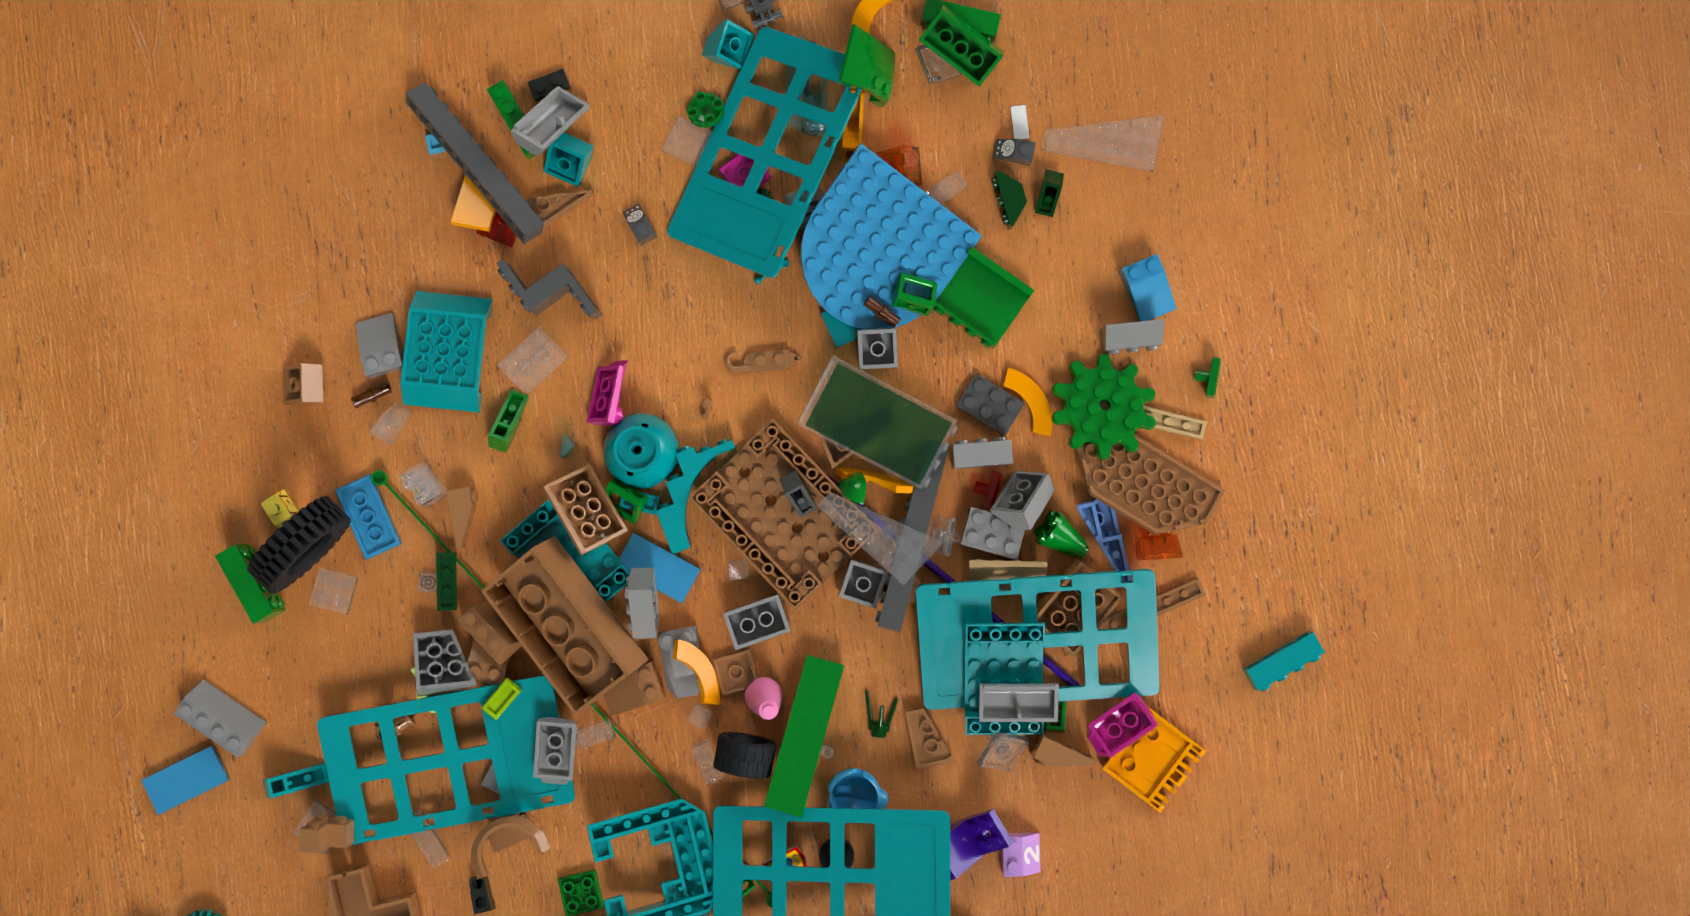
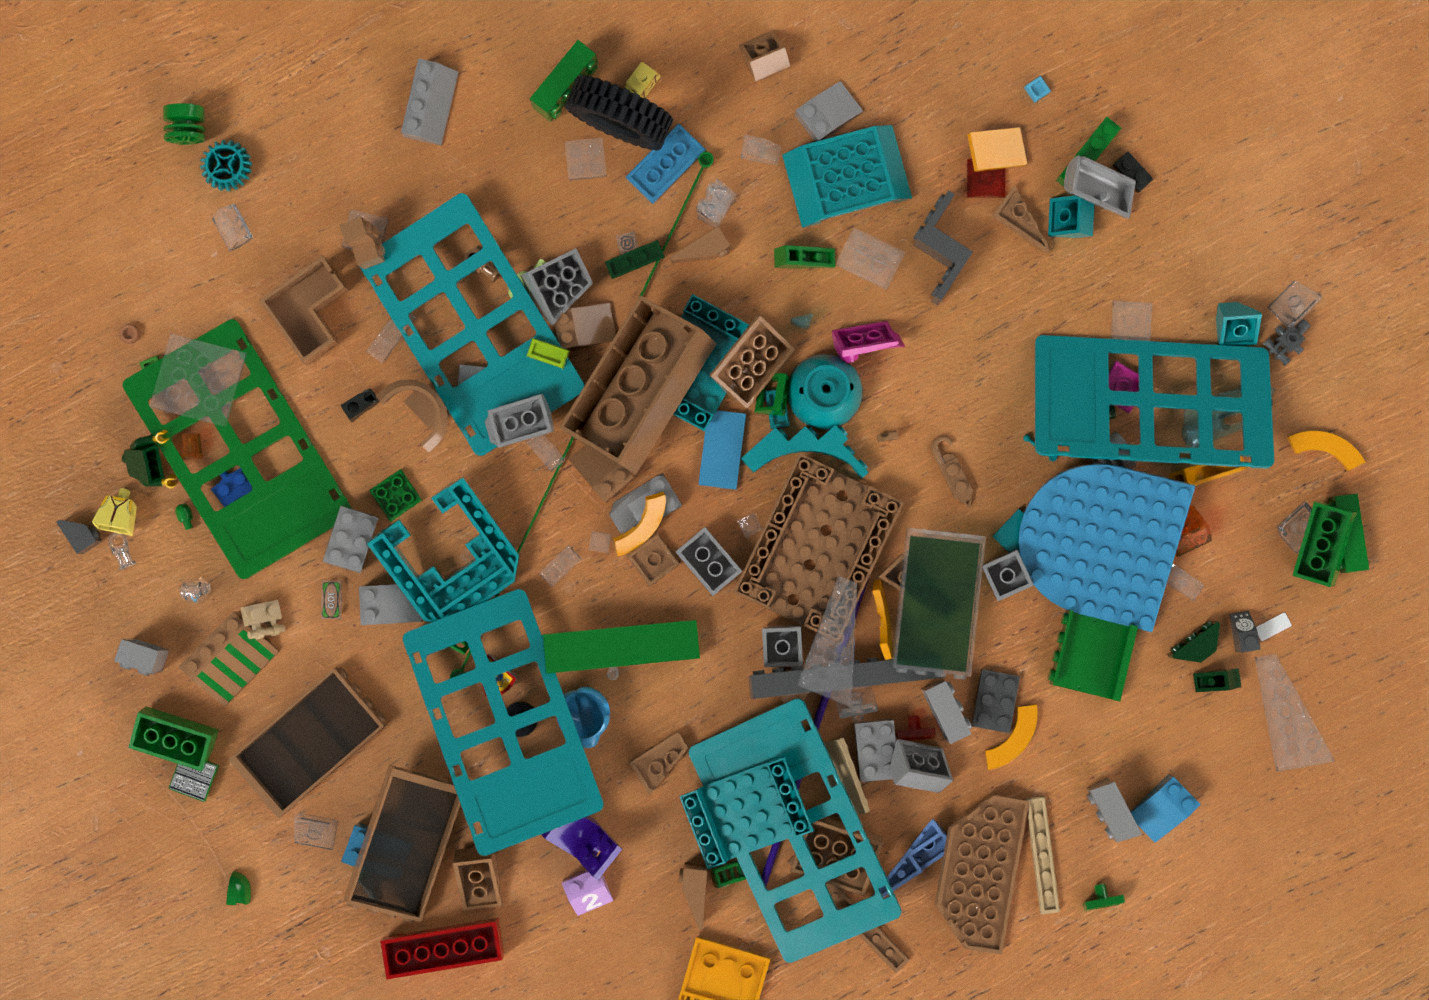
camera: 70 degrees right, 0 degrees up
(185, 780) = (360, 92): dark azure tile -> none
(295, 781) = (398, 193): teal slope -> none
(371, 395) = (779, 121): reddish brown pin -> none
(474, 162) = (1033, 132): dark grey brick -> none
(490, 631) = (605, 318): medium nougat slope -> none
(640, 224) = (1035, 308): dark grey slope -> none
(643, 603) = (685, 448): light grey brick -> none
(705, 110) = (1167, 326): green dish -> none
(744, 755) = (581, 598): black tyre -> none
(764, 697) = (641, 595): bright pink cone -> none
(797, 493) = (842, 553): dark grey slope -> none
(854, 488) = (869, 604): green brick -> none
(868, 66) = (1270, 464): green slope -> none
(879, 727) = (654, 713): dark green plant -> none
(881, 311) = (1044, 565): reddish brown pin -> none
(911, 302) = (1063, 594): green tile -> none
(1002, 751) = (677, 837): clear tile -> none
(1018, 702) = (729, 834): light grey container -> none
(1060, 536) = (898, 814): green cone -> none
(1097, 425) = (1016, 805): green plate -> none
(1121, 726) = (742, 939): dark pink slope -> none
(1158, 546) = (923, 910): clear orange slope -> none

